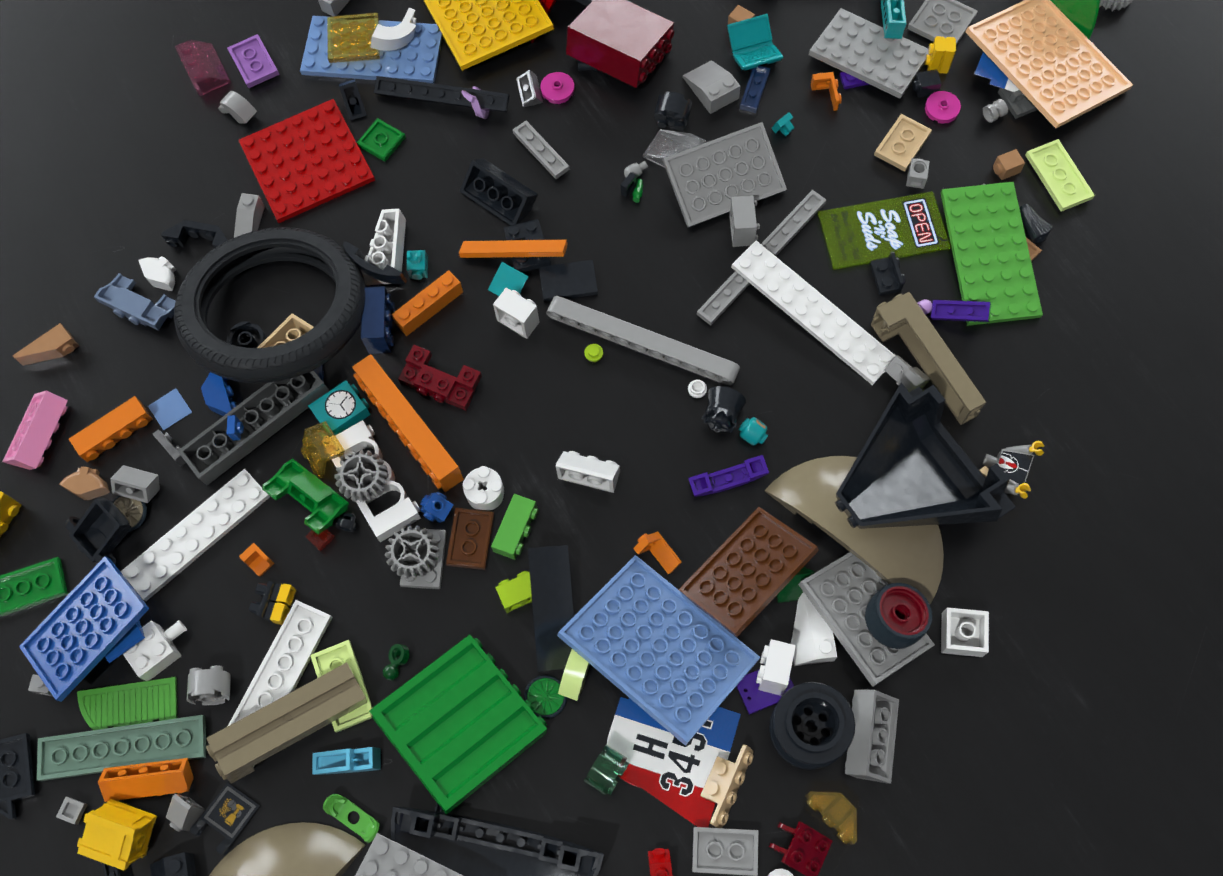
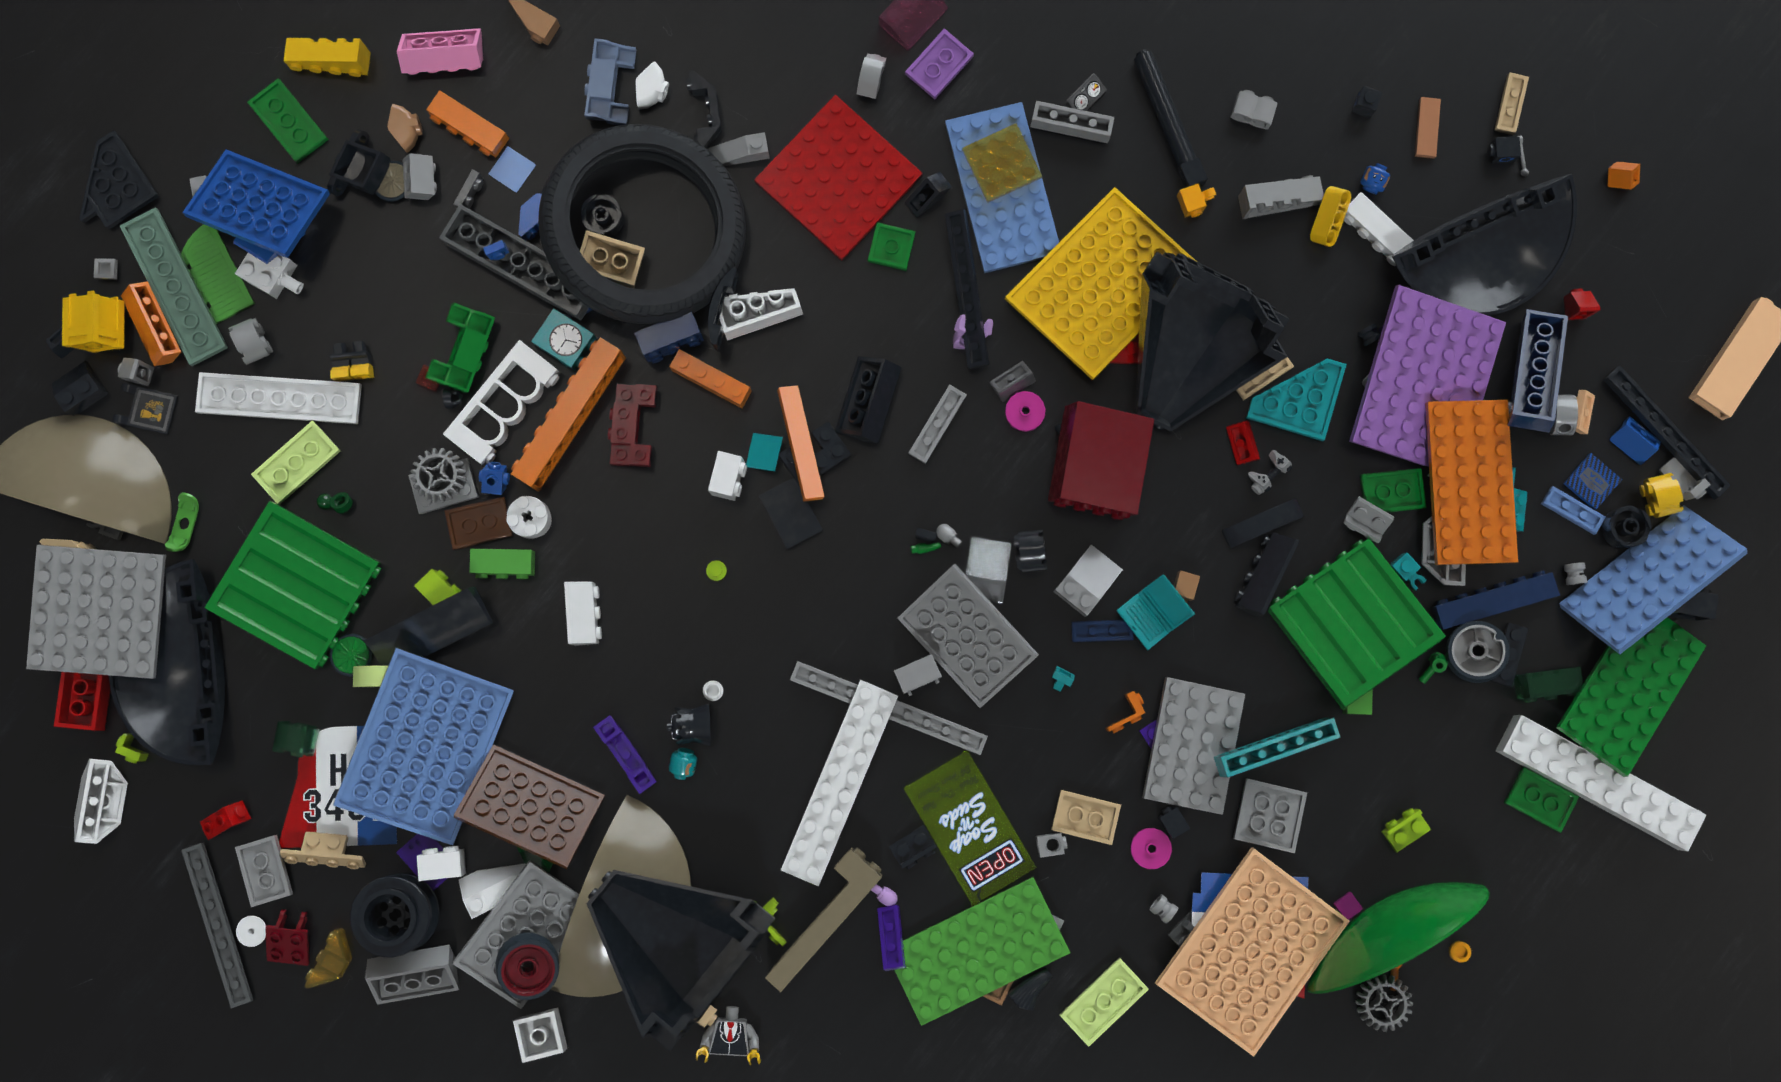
camera: 65 degrees right, 15 degrees up
(194, 535) = (393, 256): white plate -> none
(256, 559) = (388, 328): orange panel -> none
(284, 722) = (236, 429): dark tan brick -> none
(320, 446) = (514, 341): clear yellow bracket -> none
(346, 474) = (502, 392): light grey gear -> none
(346, 761) = (229, 496): medium azure slope -> none
(395, 37) = (1012, 210): white arch -> none
(417, 264) = (751, 349): teal brick -> none
(643, 340) = (746, 616): light grey beam -> none
(659, 549) = (527, 713): orange bracket -> none
(903, 372) = (791, 905): light grey brick -> none
(941, 54) = (1211, 827): yellow brick -> none
(1008, 164) = (1096, 941): medium nougat brick -> none

